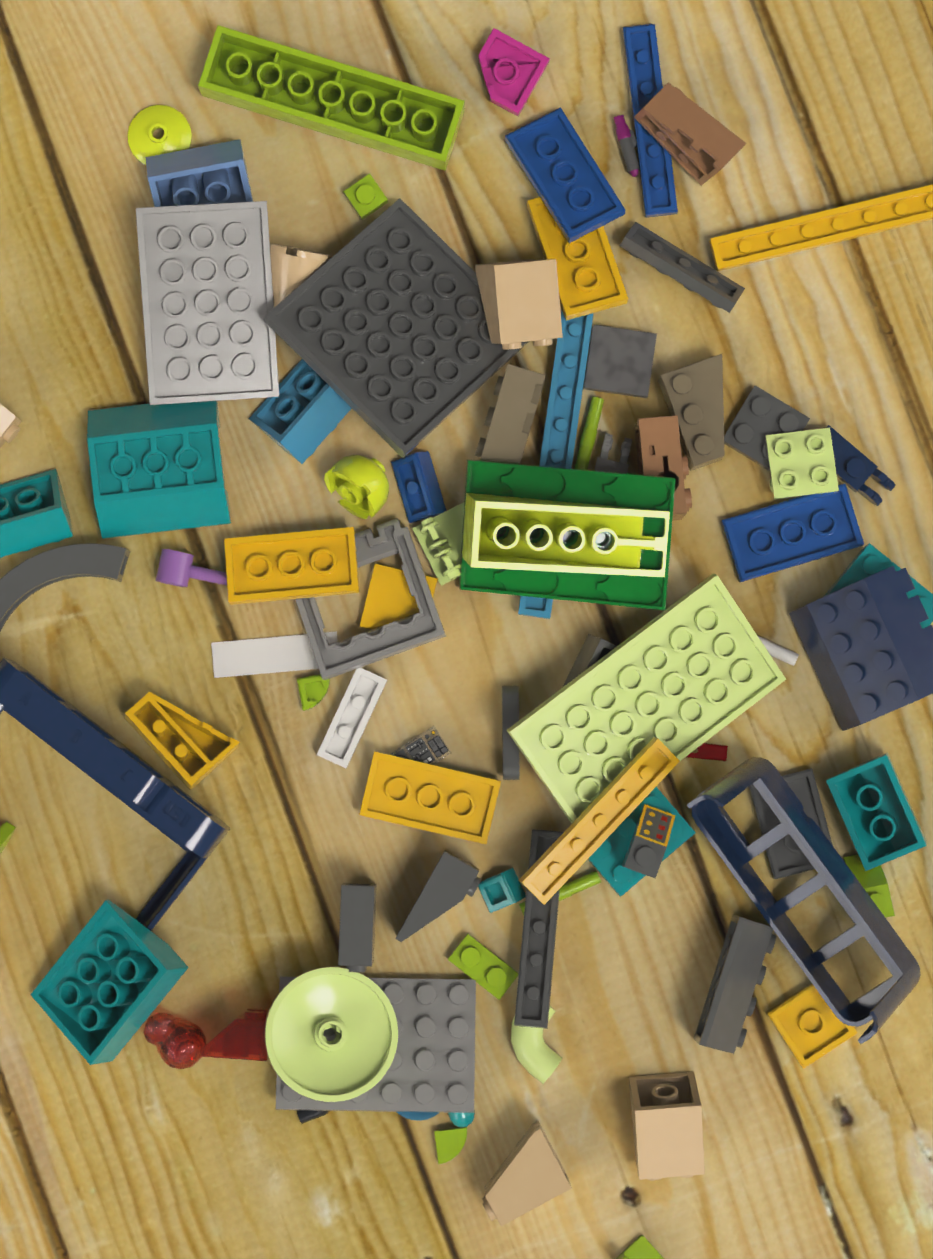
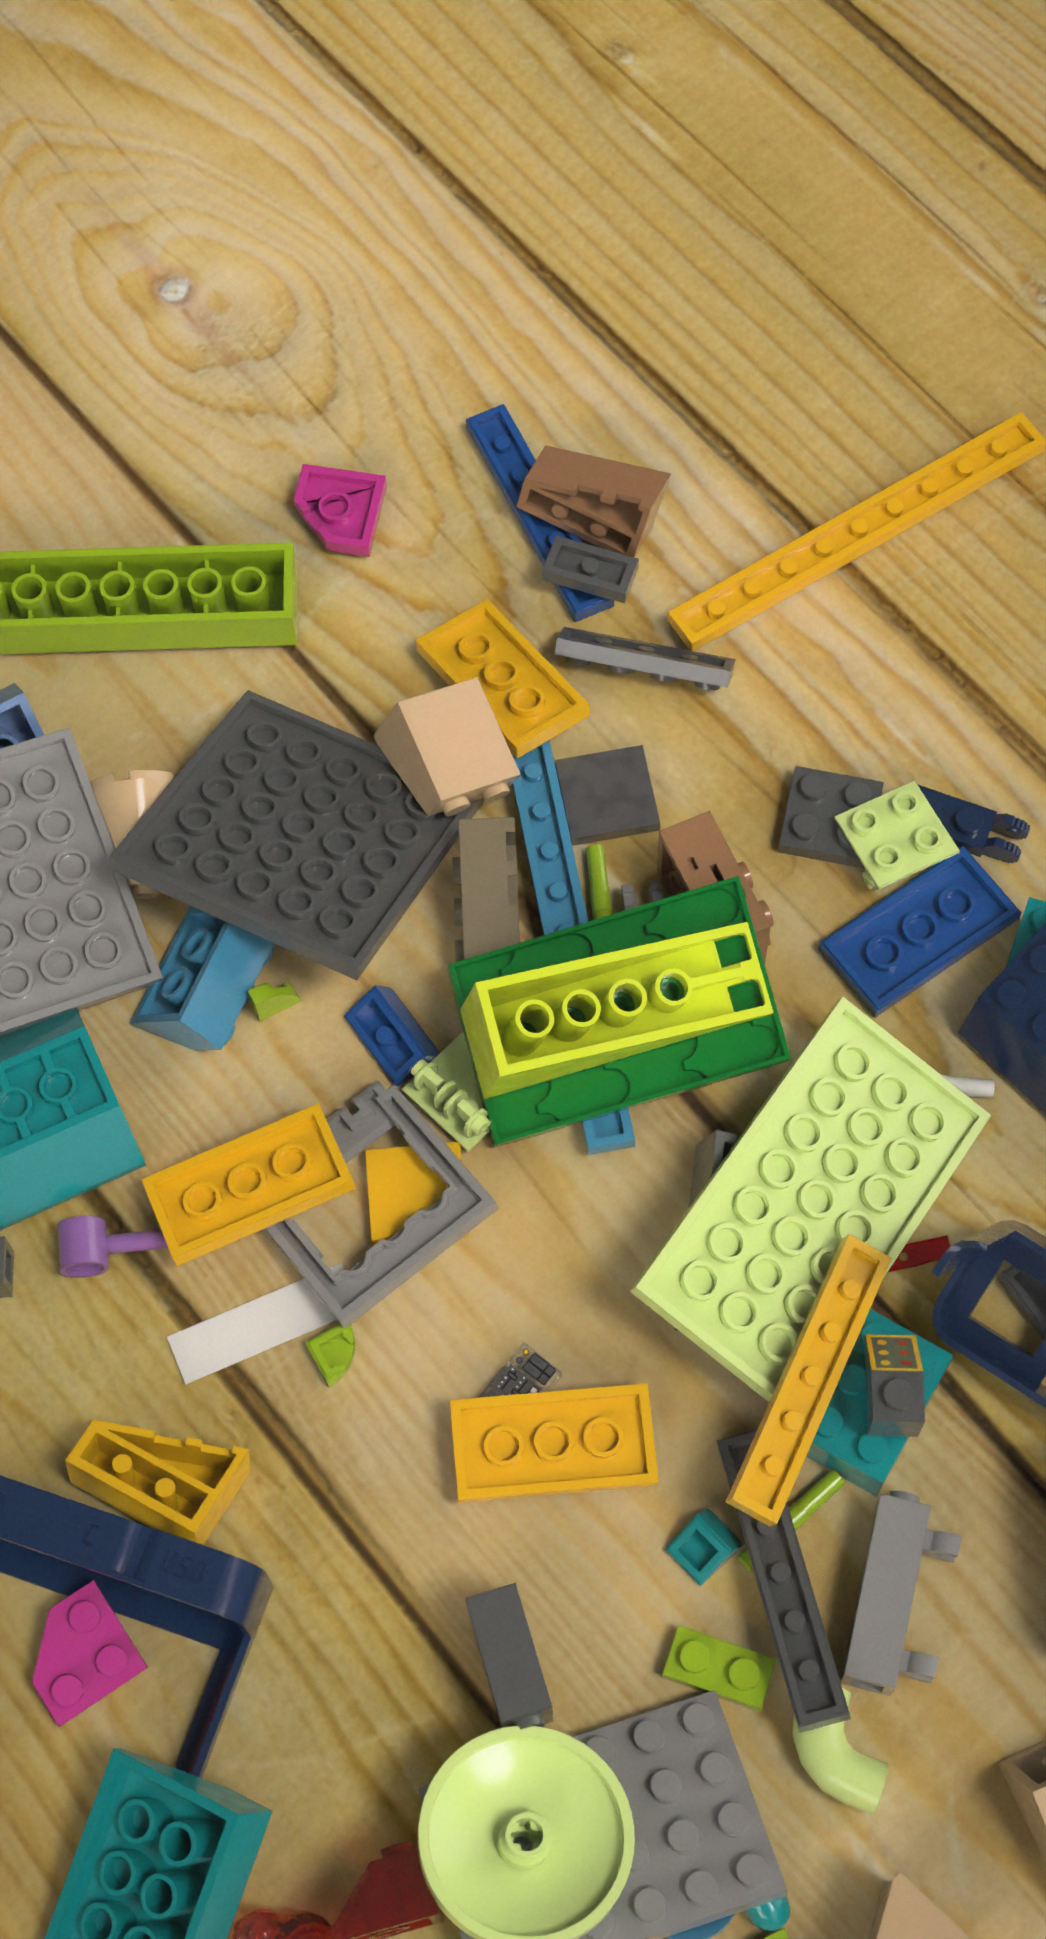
camera: 15 degrees left, 20 degrees down
(103, 829) = (83, 1654): none -> dark pink plate
(344, 436) = (270, 1001): none -> lime tile
(352, 717) = (401, 1370): white plate -> none
(360, 483) = (307, 1051): neon yellow cylinder -> none
(365, 196) = (202, 706): lime plate -> none
(443, 890) = (620, 1567): dark grey slope -> none
(510, 716) = (636, 1316): dark grey beam -> none
(565, 175) = (453, 597): blue tile -> none
(600, 958) = (887, 1593): none -> light grey brick
(627, 143) = (520, 544): piece -> none
(667, 187) = (590, 569): none -> dark grey plate
(697, 399) = (733, 793): dark tan wedge -> none

